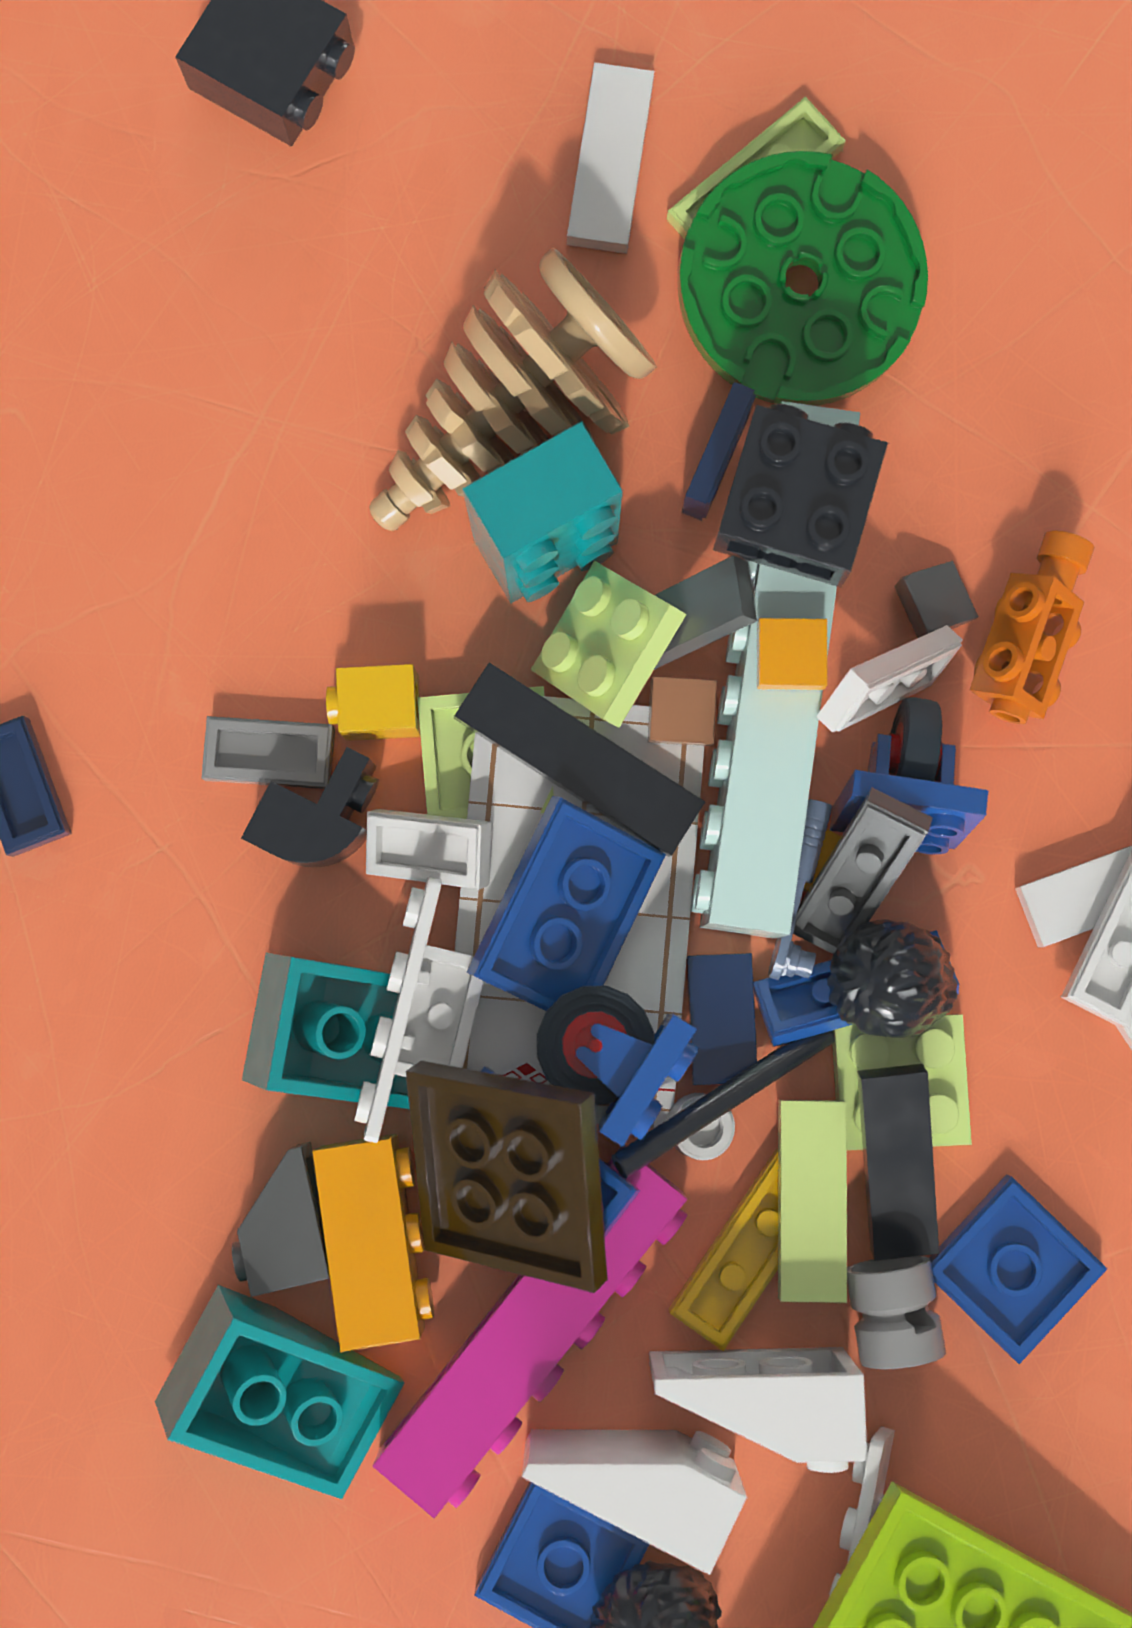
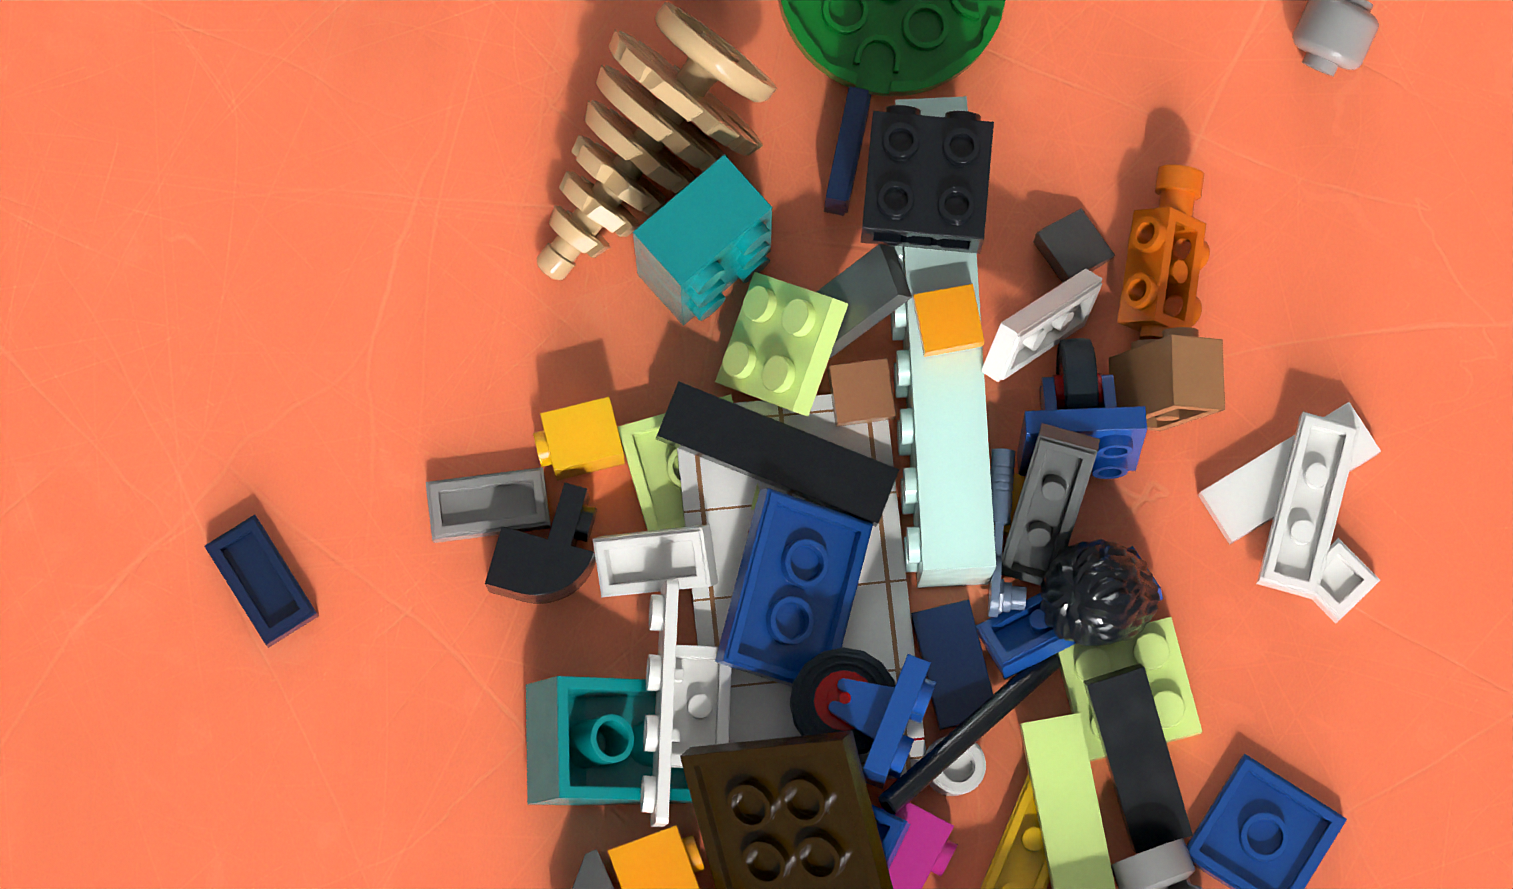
camera: 15 degrees left, 5 degrees down
(1020, 761) = (1172, 377): none -> medium nougat brick

